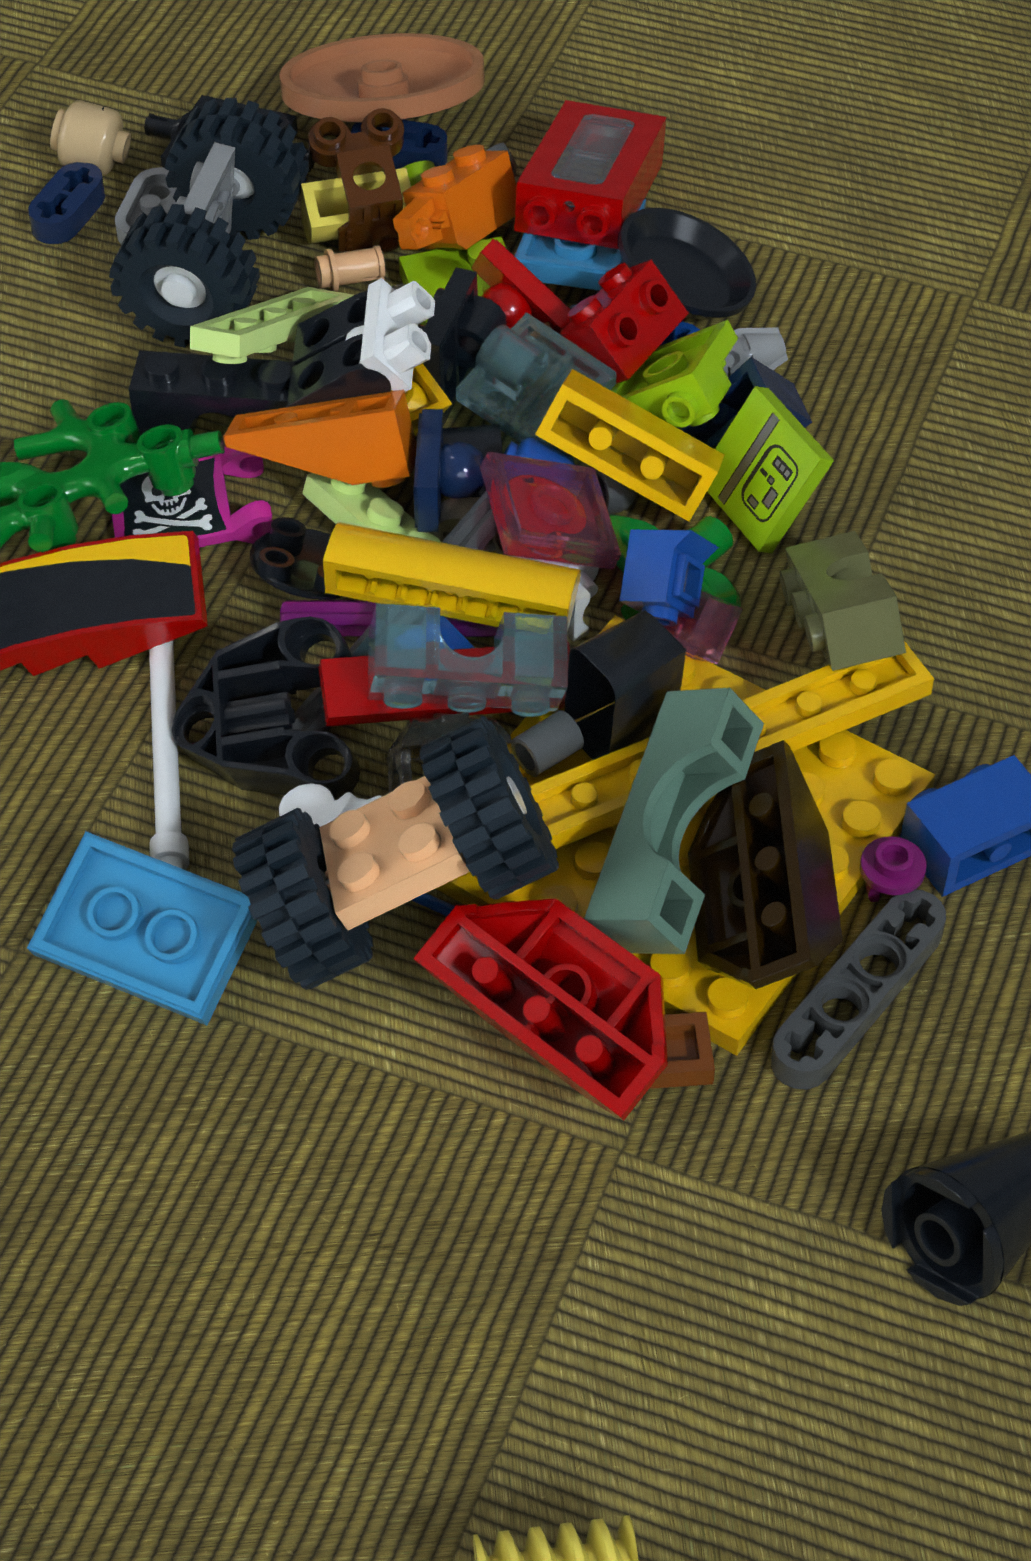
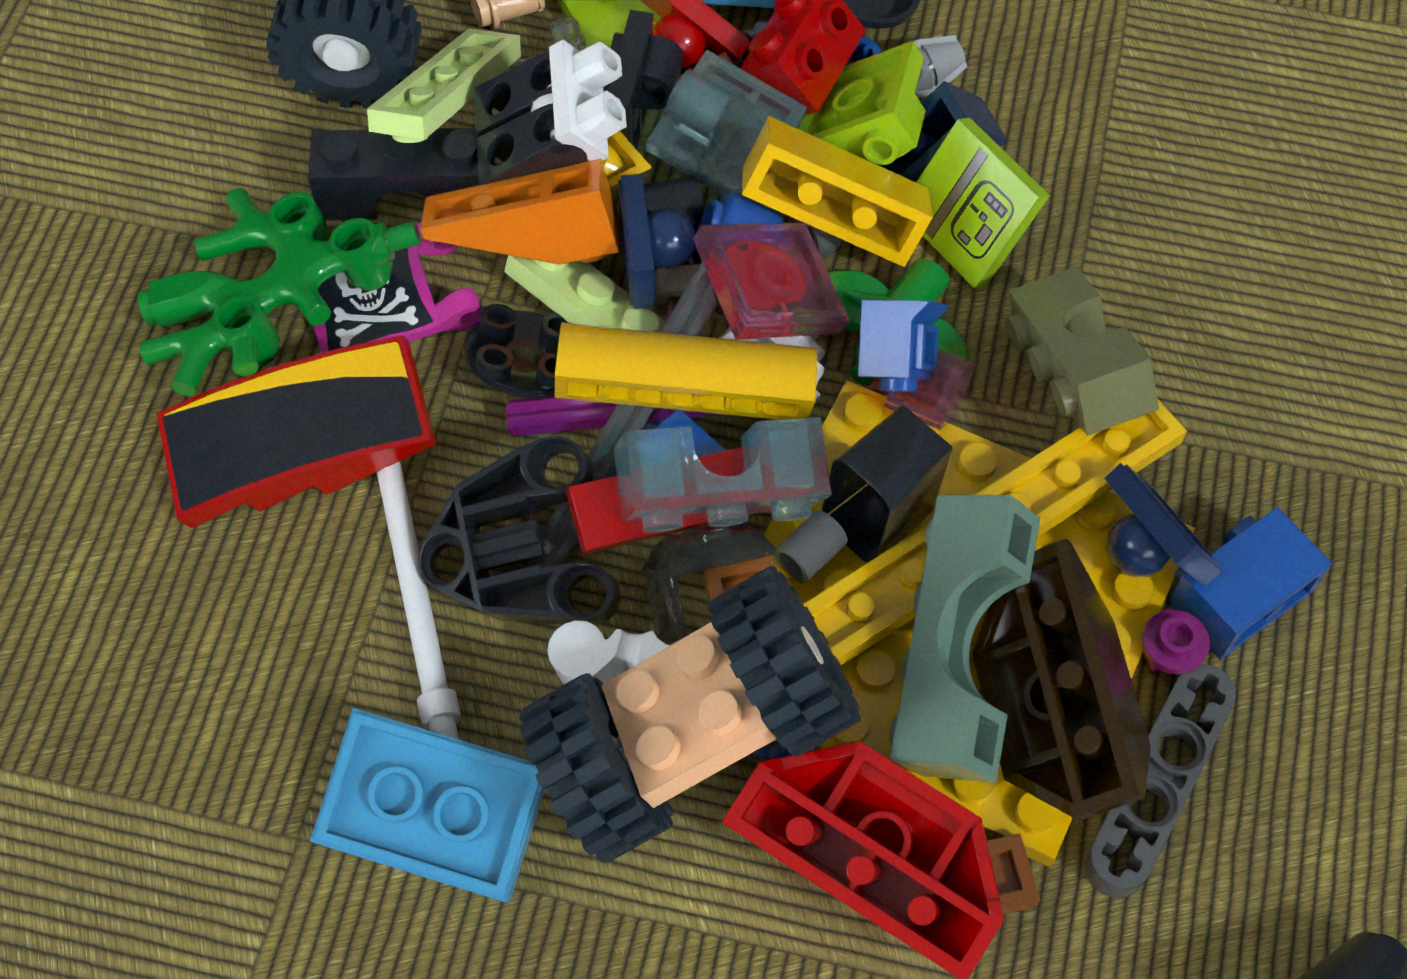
camera: 10 degrees left, 10 degrees up
(875, 767) = (1153, 534): none -> dark blue tile

